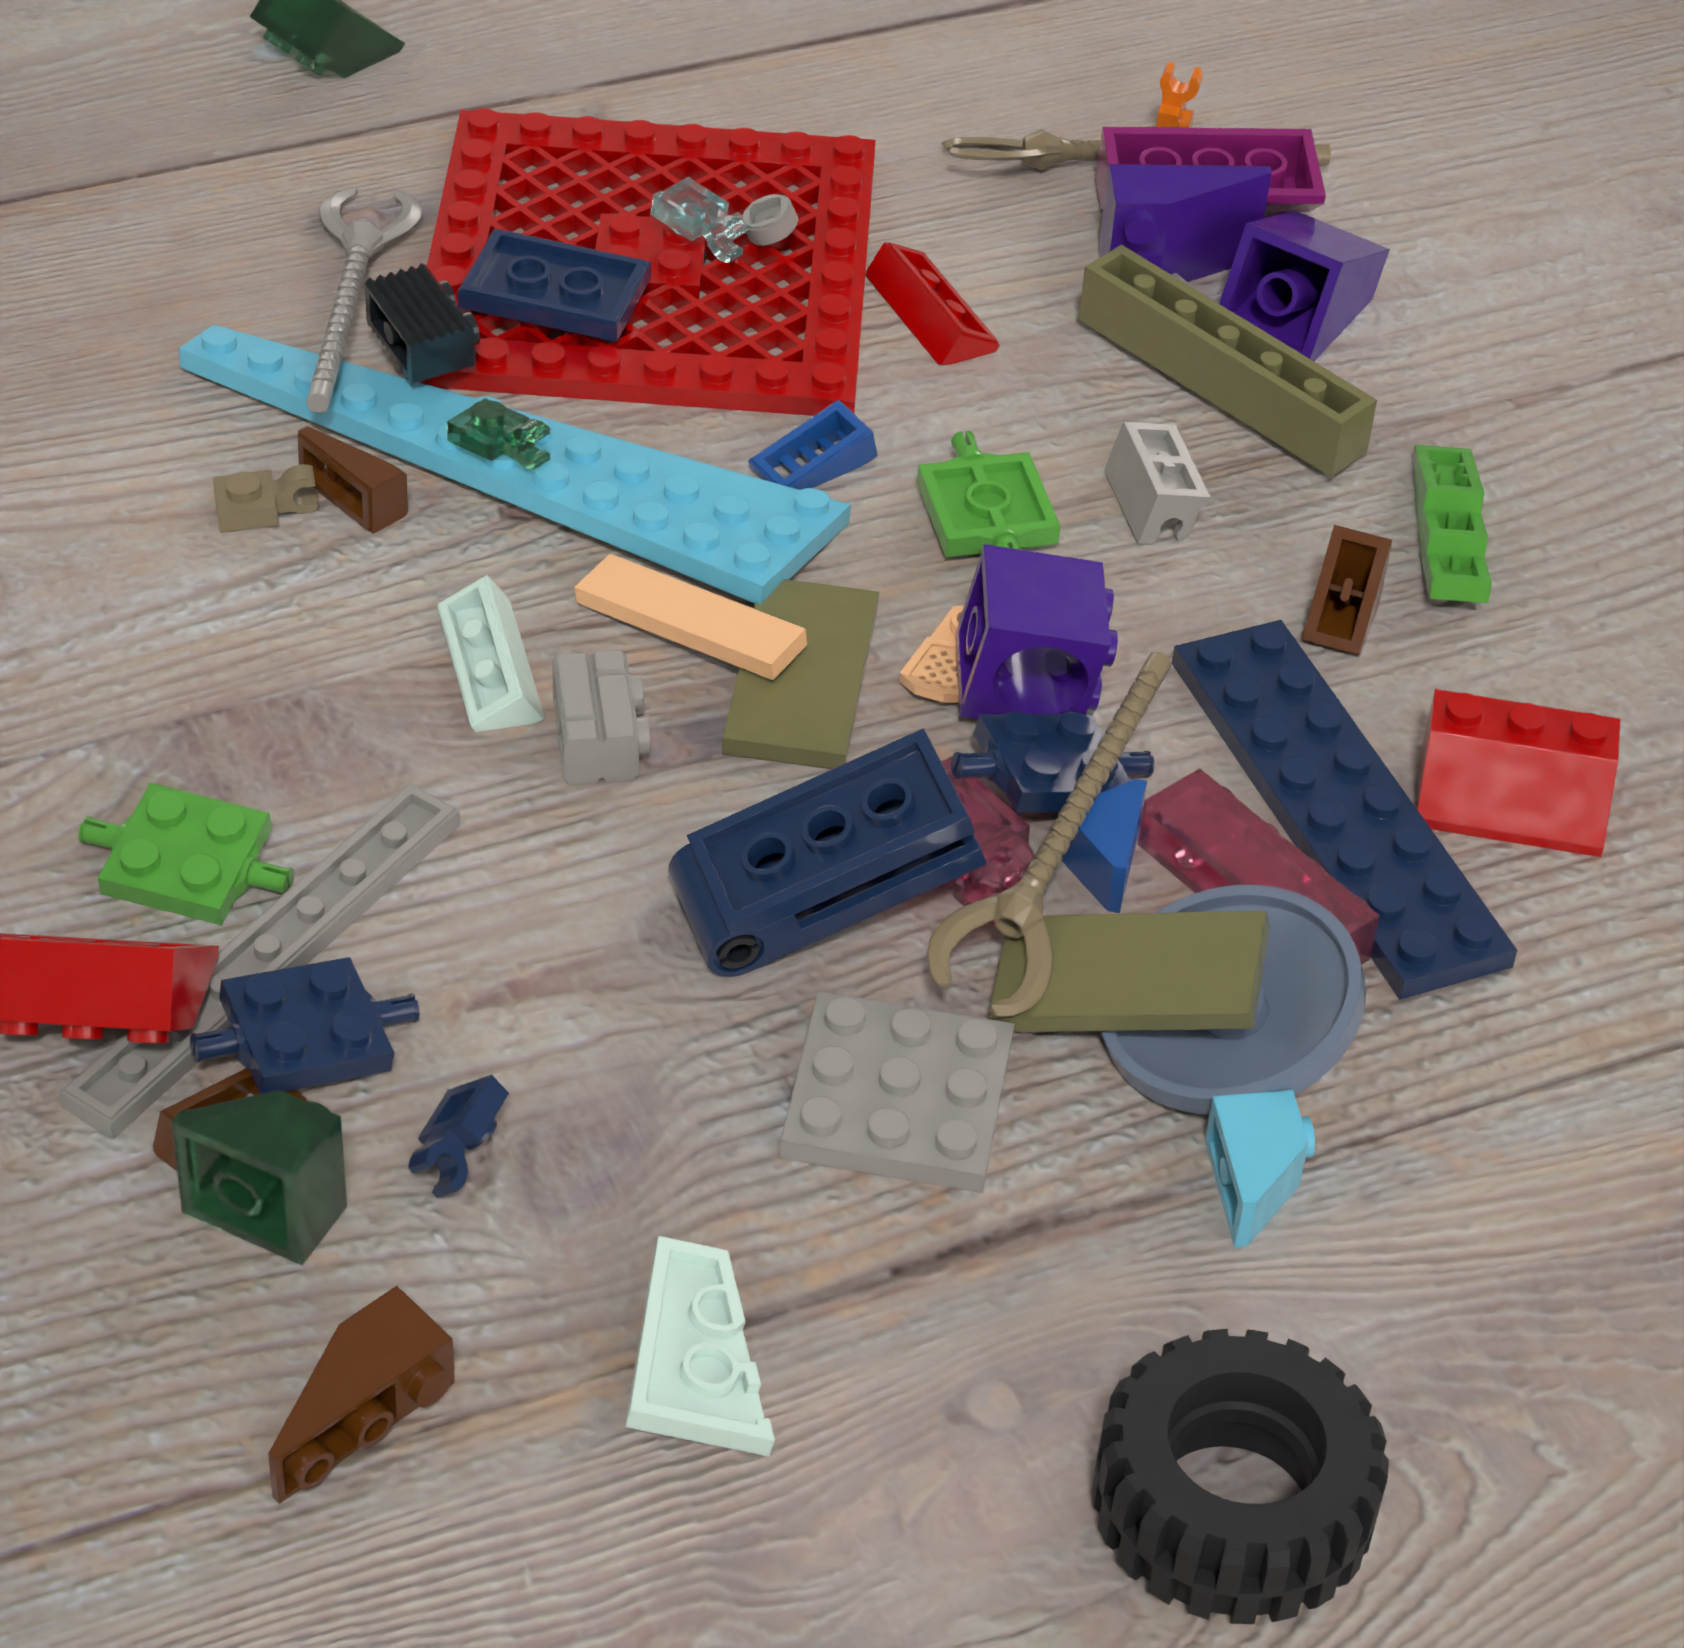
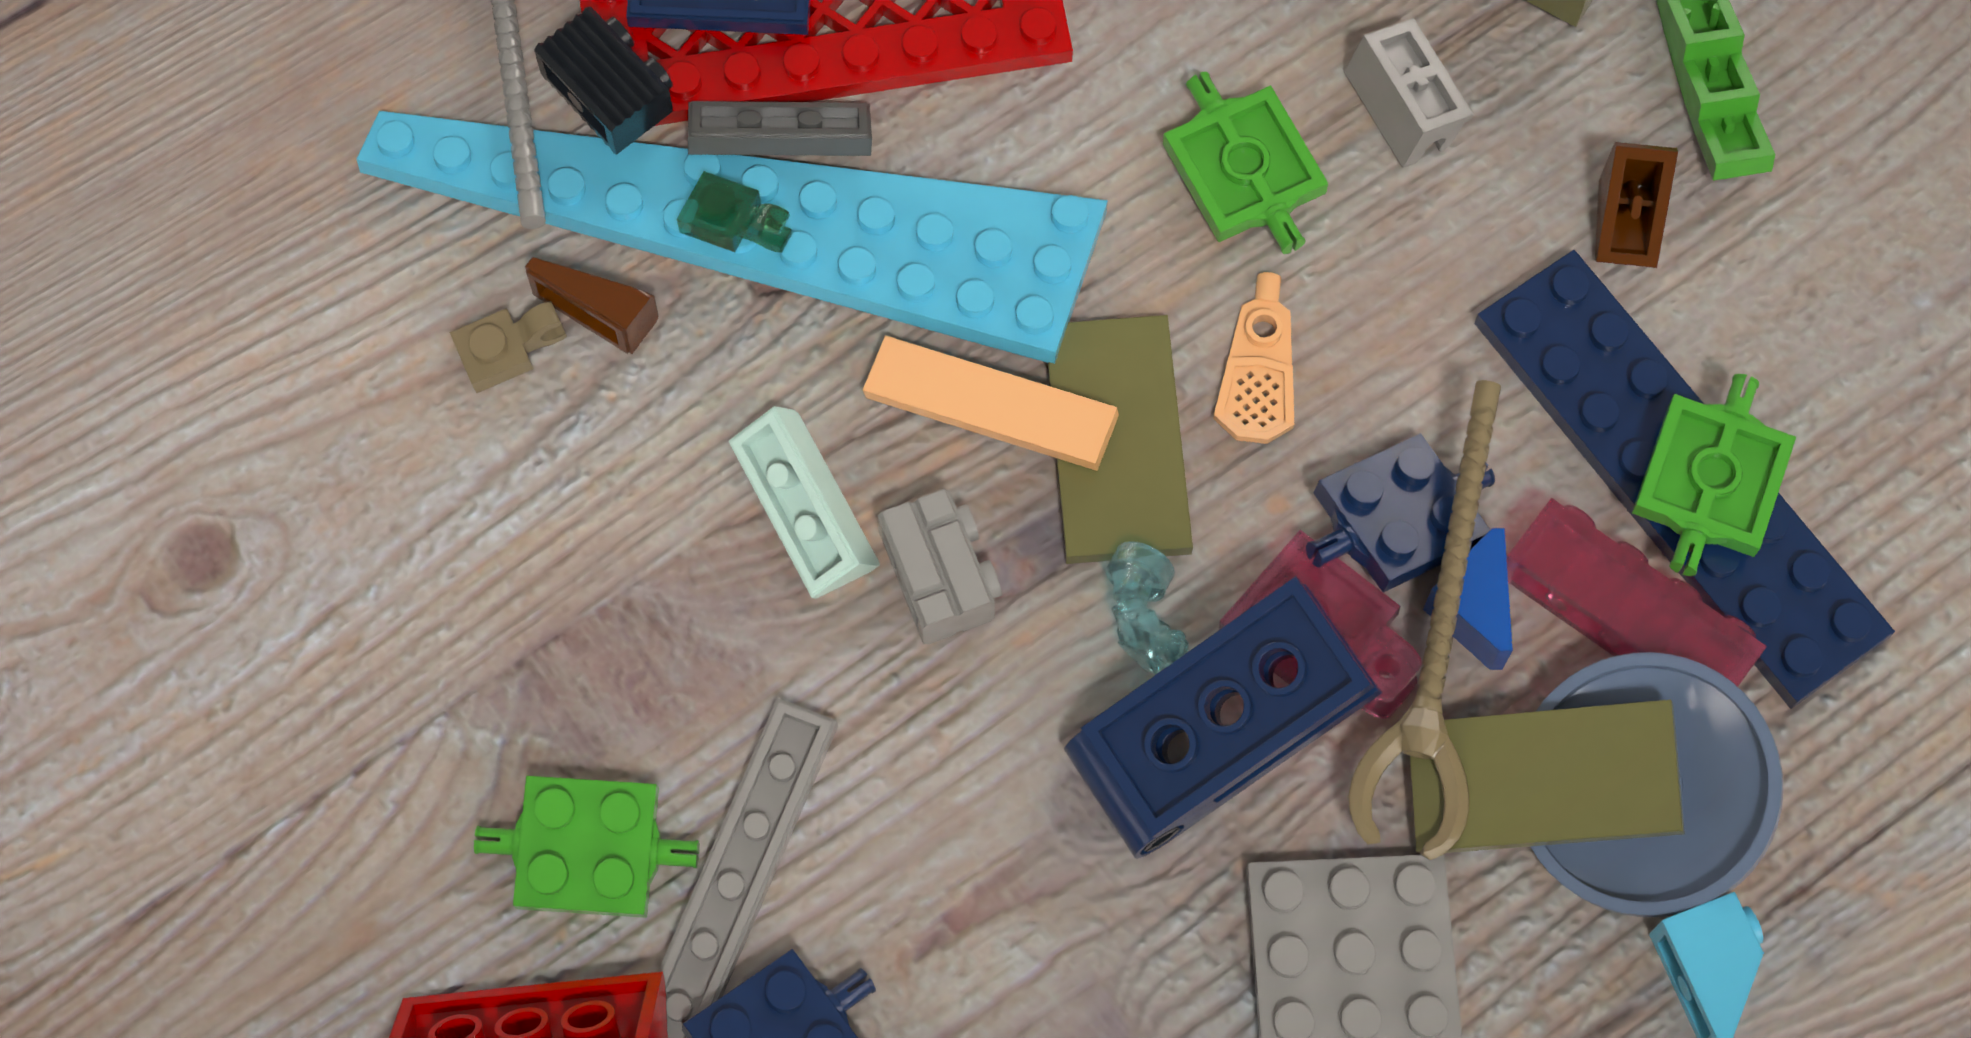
camera: 10 degrees left, 25 degrees up
(567, 398) = (779, 128): none -> dark grey tile
(783, 761) = (1139, 577): none -> clear light blue arm
(828, 426) = (1060, 86): blue slope -> none
(1033, 634) = (1349, 369): dark purple brick -> none
(1364, 782) = (1714, 475): none -> bright green plate
(1518, 772) = (1857, 401): slope -> none

